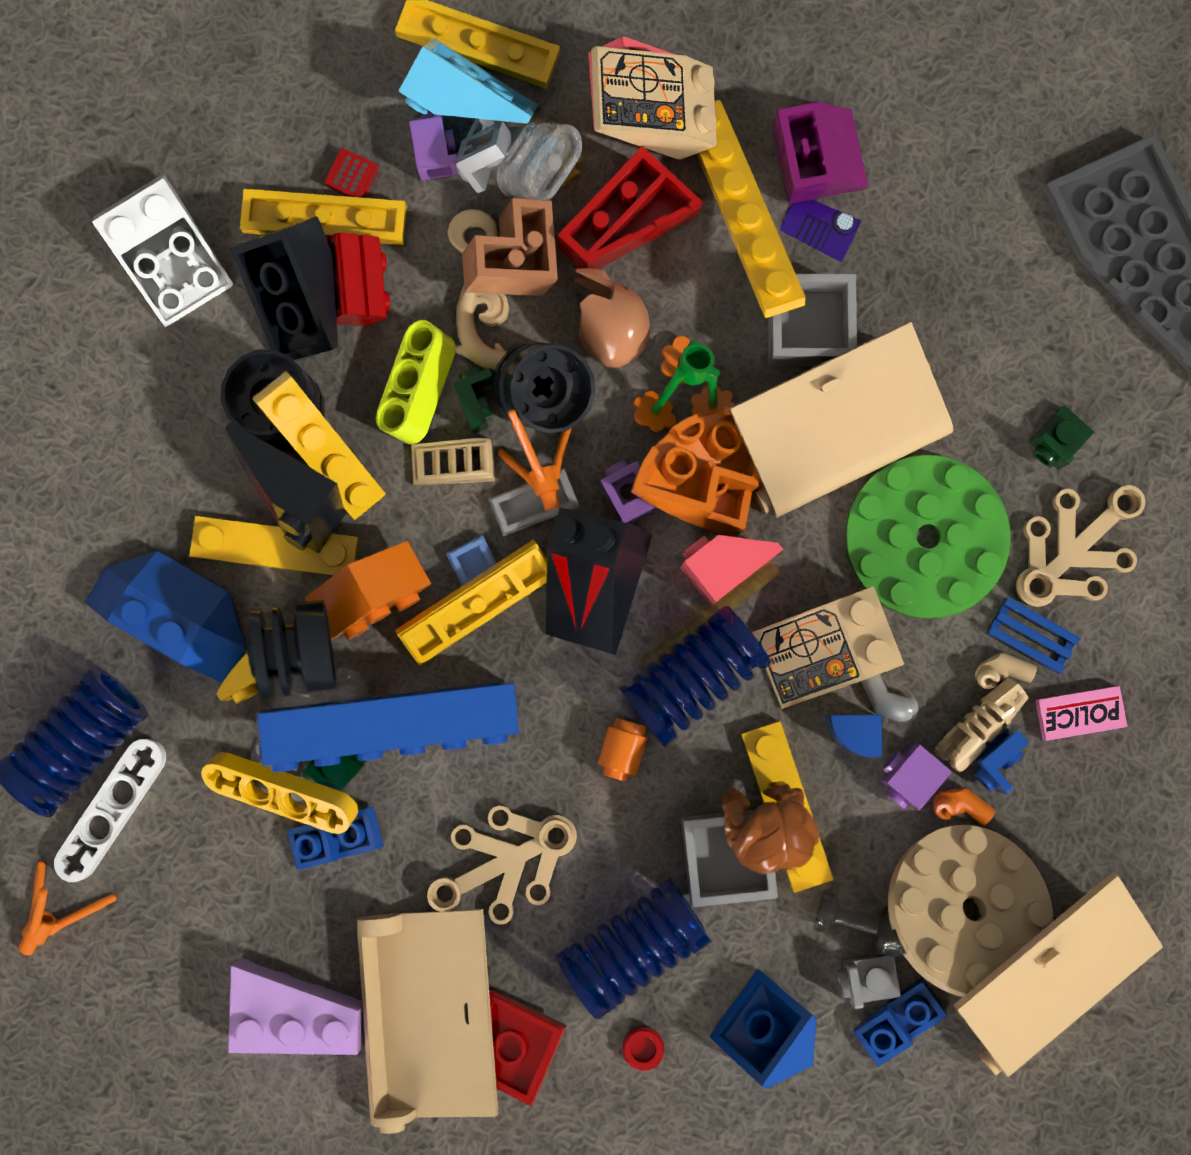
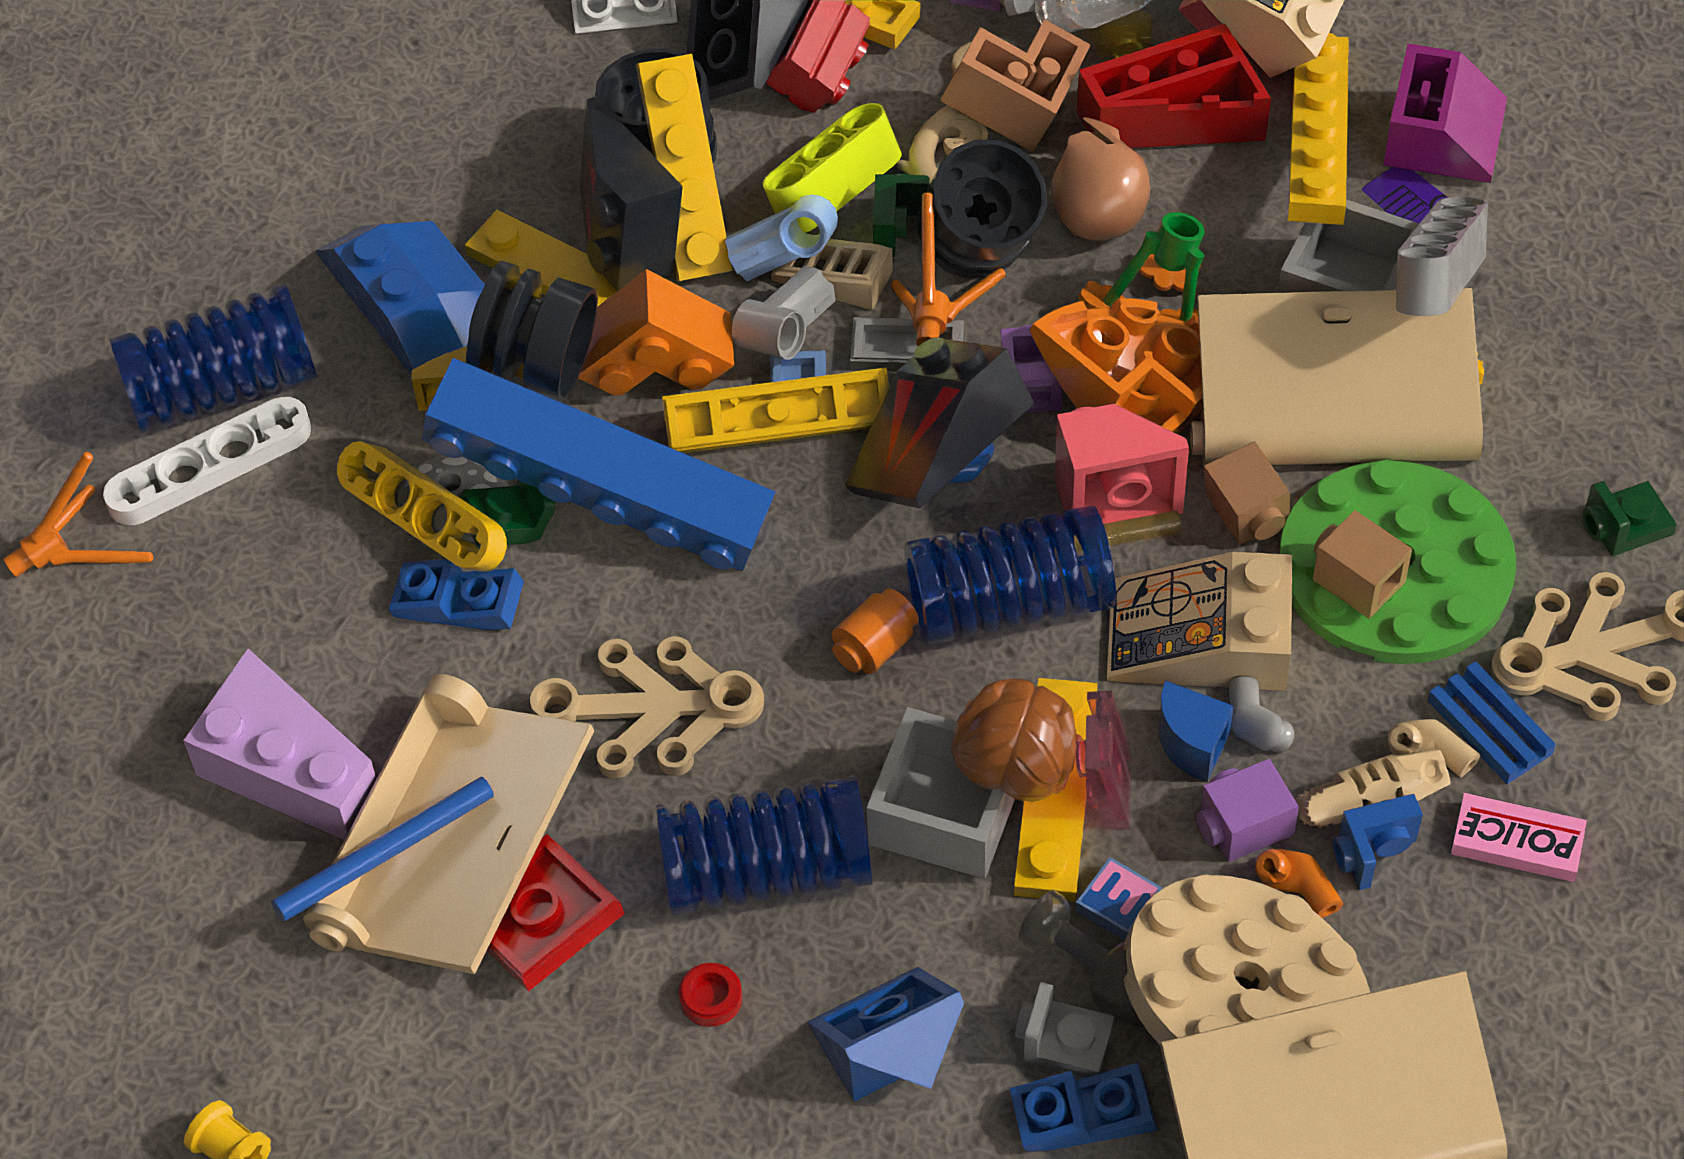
camera: 30 degrees right, 30 degrees down
(397, 1063) = (382, 849): none -> blue bar
(422, 458) = (780, 239): none -> light blue piece
(443, 536) = (781, 321): none -> light grey piece
(817, 535) = (1247, 494): none -> medium nougat brick
(821, 798) = (1104, 763): none -> clear pink plate
(859, 868) = (1115, 897): none -> tile
(883, 306) = (1441, 256): none -> light grey beam
(918, 570) = (1361, 563): none -> medium nougat brick

